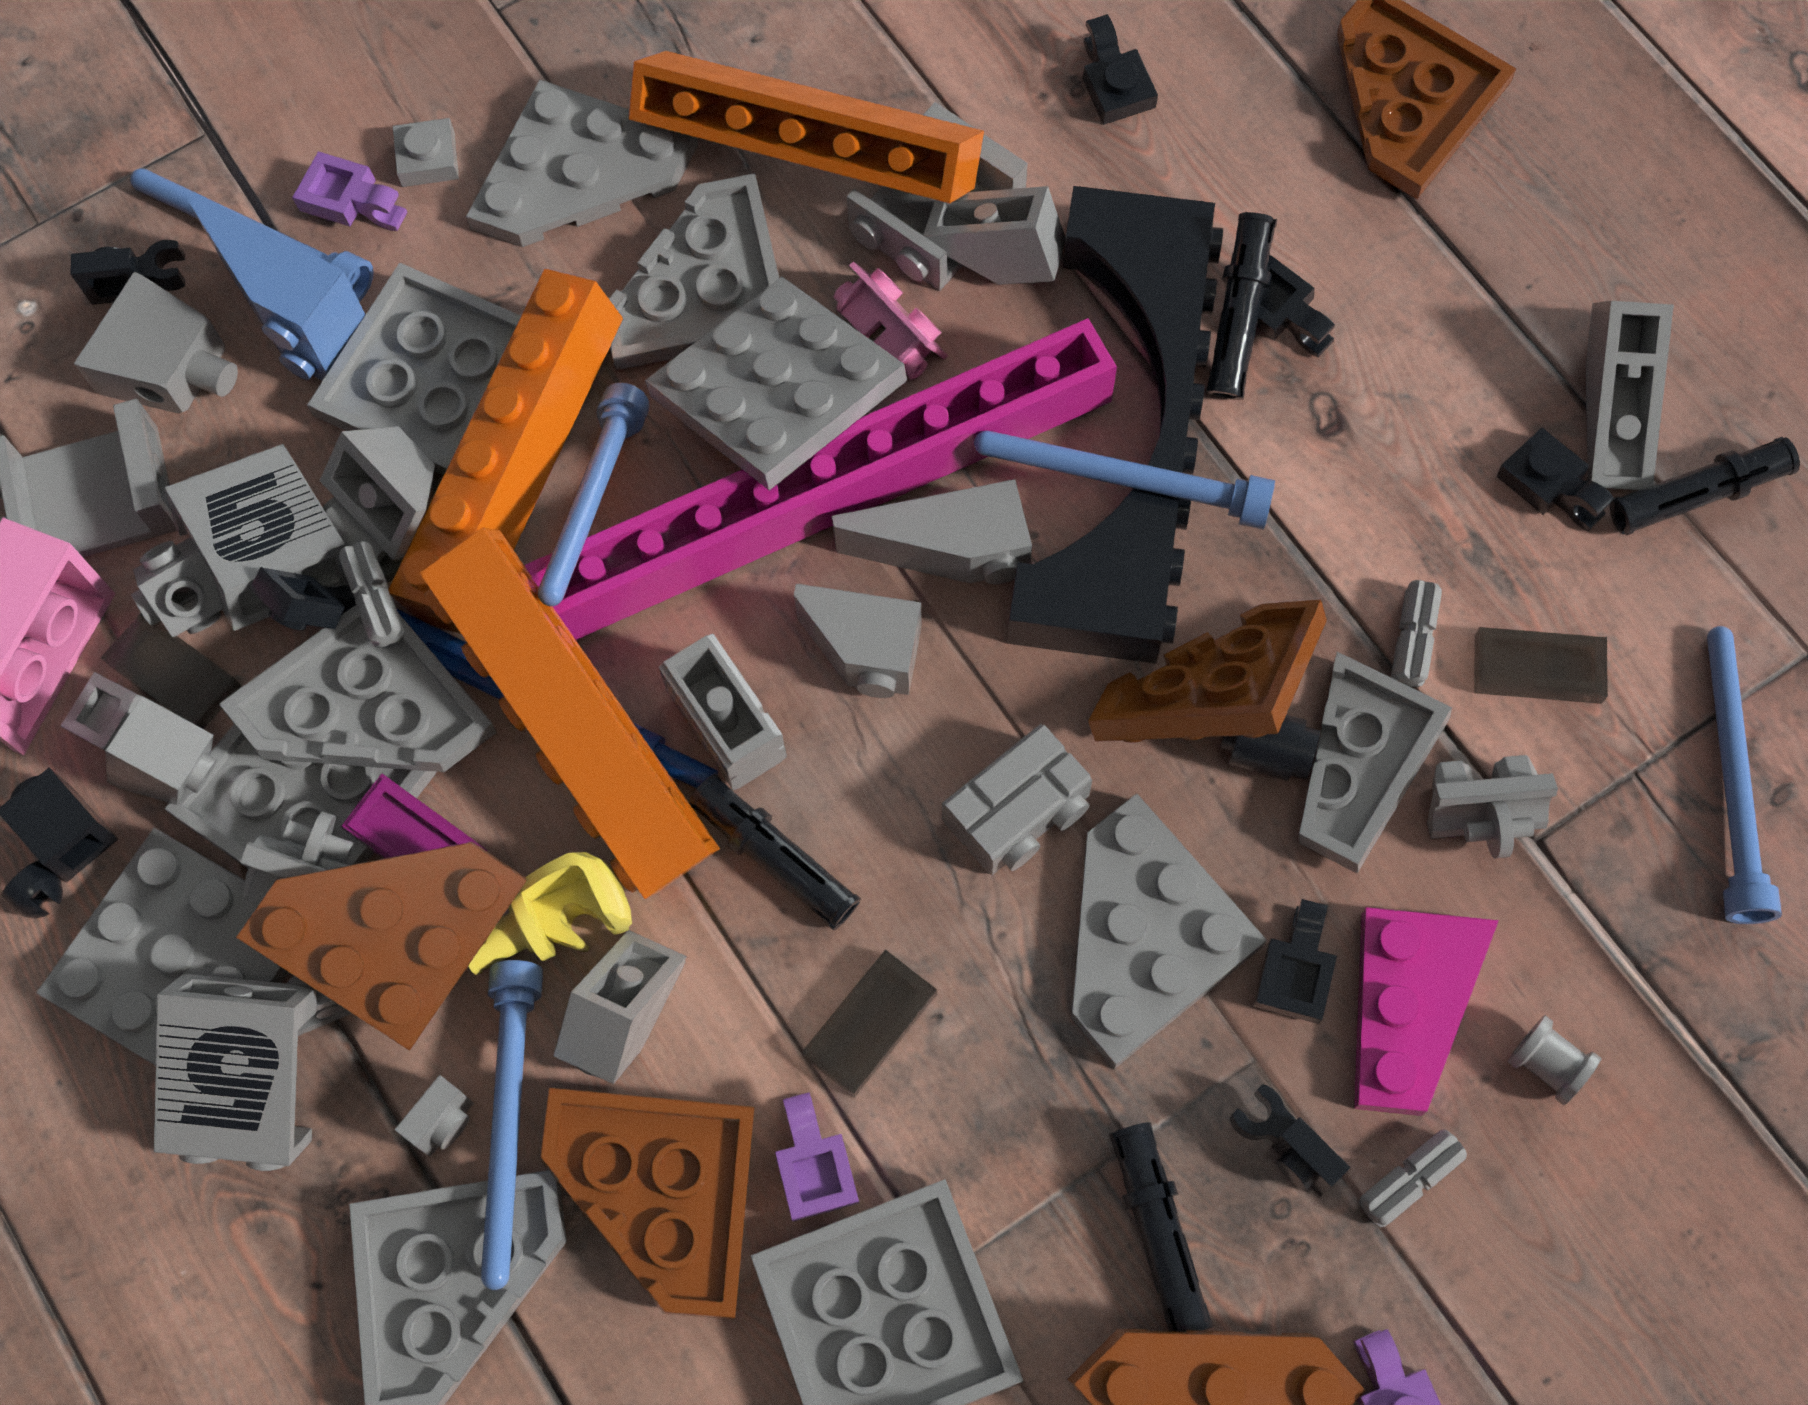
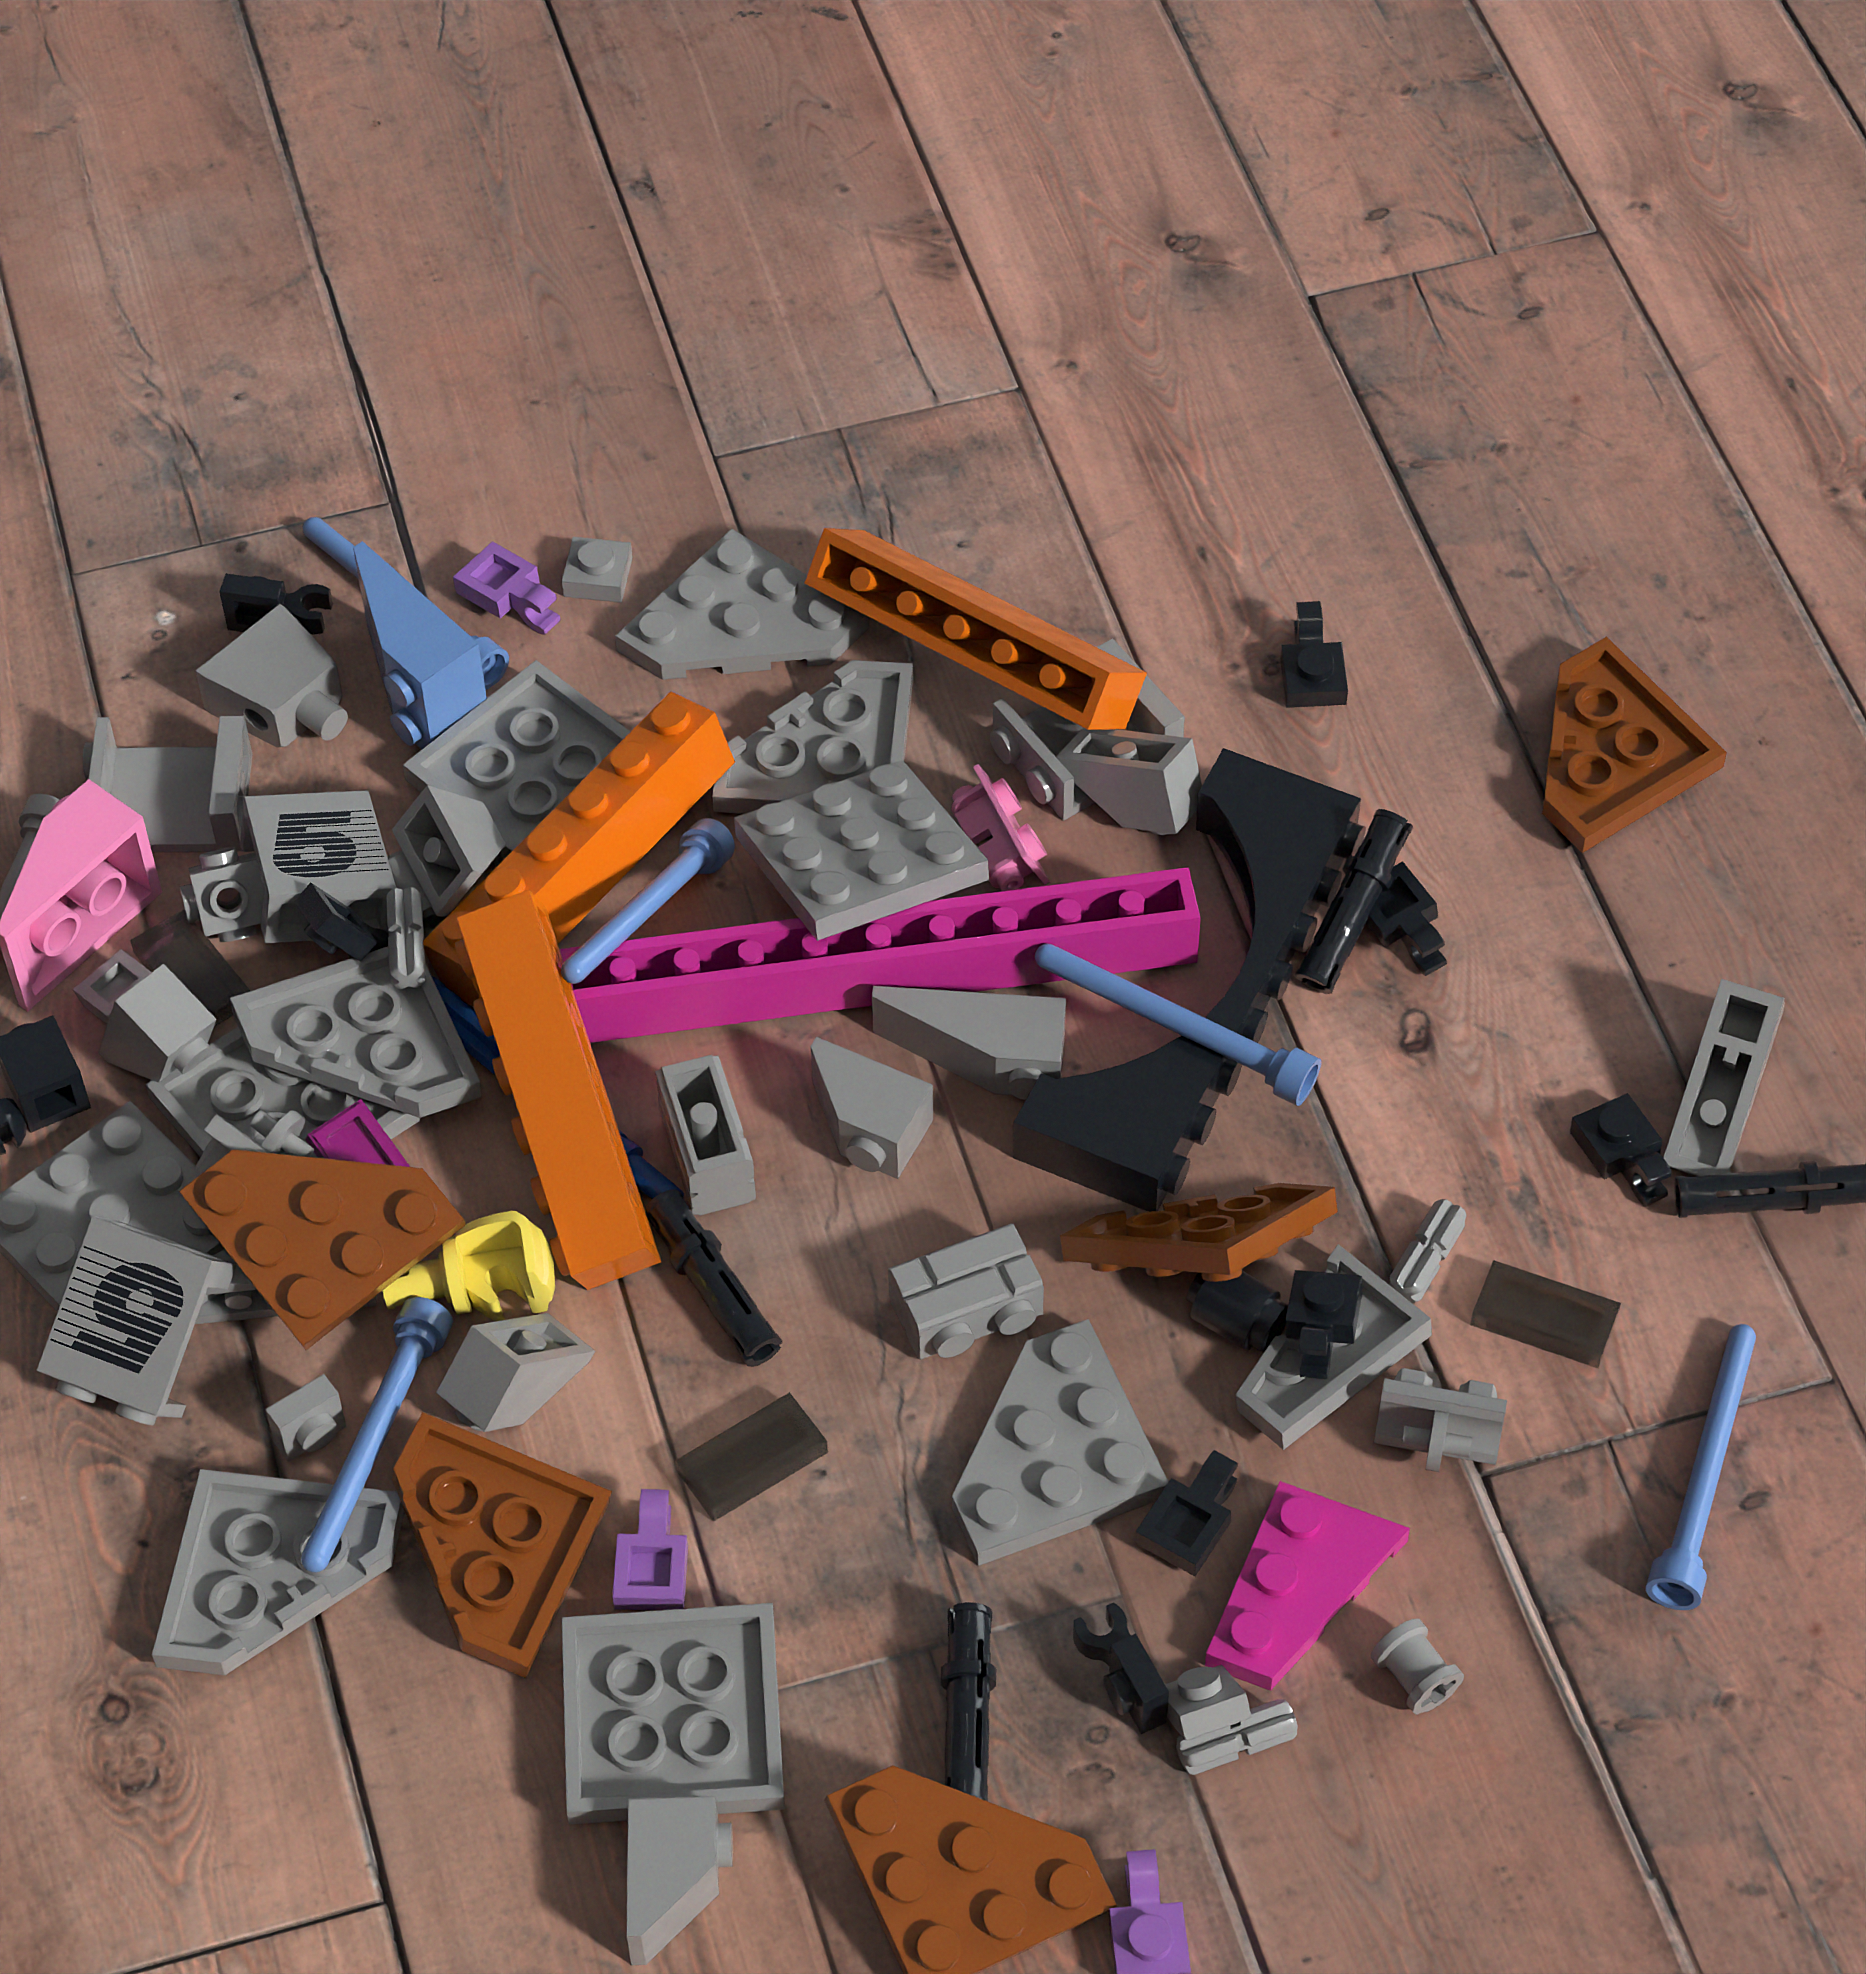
camera: 15 degrees right, 15 degrees down
(1355, 730) = (1320, 1313): none -> black plate
(1378, 1156) = (1205, 1701): none -> light grey plate

